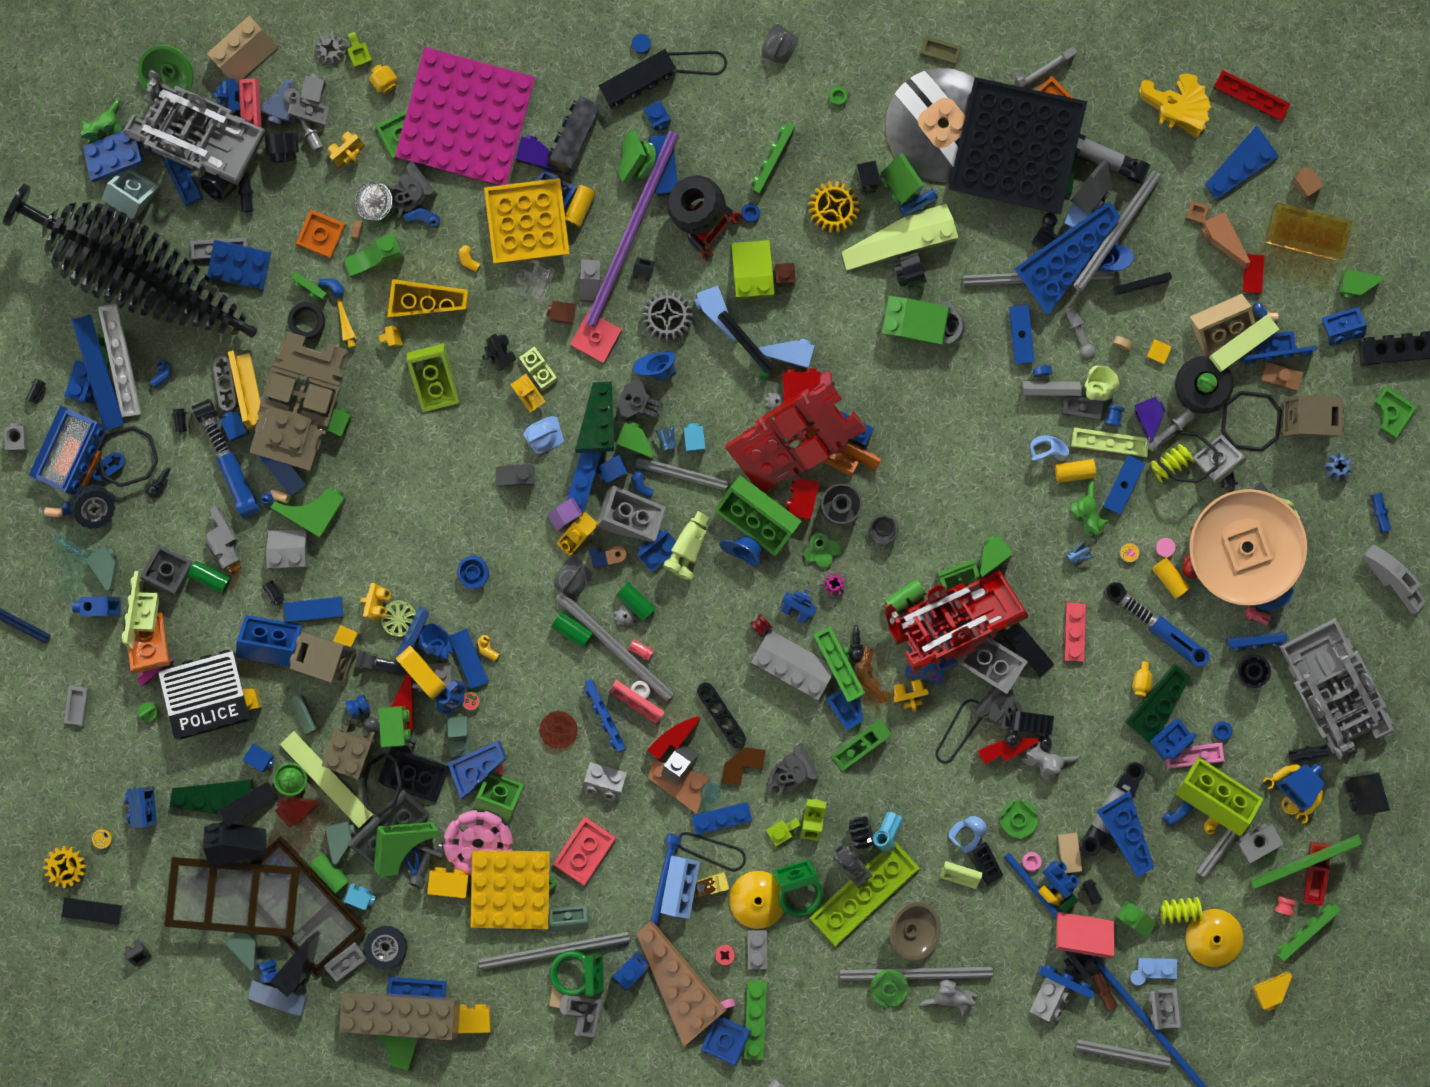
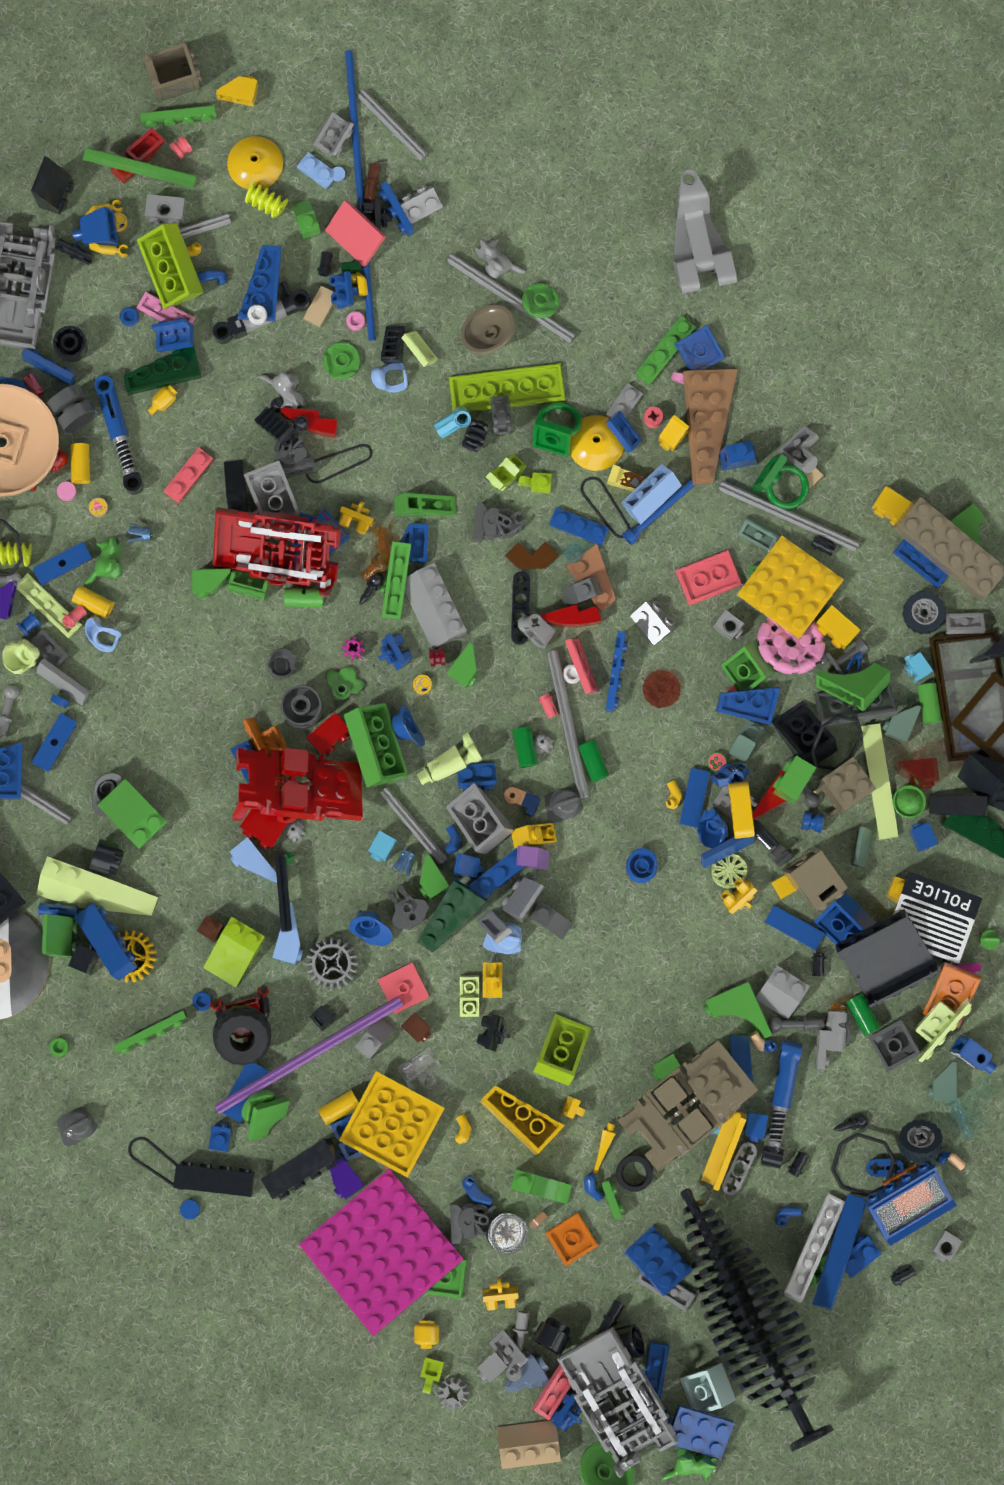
camera: 145 degrees left, 5 degrees down
(218, 634) = (887, 958): none -> black panel
(274, 519) = (776, 1024): none -> dark grey pin
(507, 945) = (823, 545): none -> black pin
(547, 821) = (725, 618): none -> light grey brick
(549, 475) = (522, 899): none -> light grey slope
(556, 436) = (494, 927): none -> light grey tile
(695, 705) = (536, 629): none -> light grey piece
(697, 950) = (673, 434): none -> yellow slope
(731, 631) = (464, 668): none -> bright green slope
(740, 924) = (624, 431): none -> blue plate
(757, 594) = (422, 684): none -> yellow tile
(860, 202) = (106, 941): none -> blue brick
(1081, 447) = (74, 616): none -> coral pin
(1114, 804) = (257, 314): none -> white tile
(1217, 618) = (71, 409): none -> dark grey wheel
(1343, 961) = (167, 73): none -> dark tan container

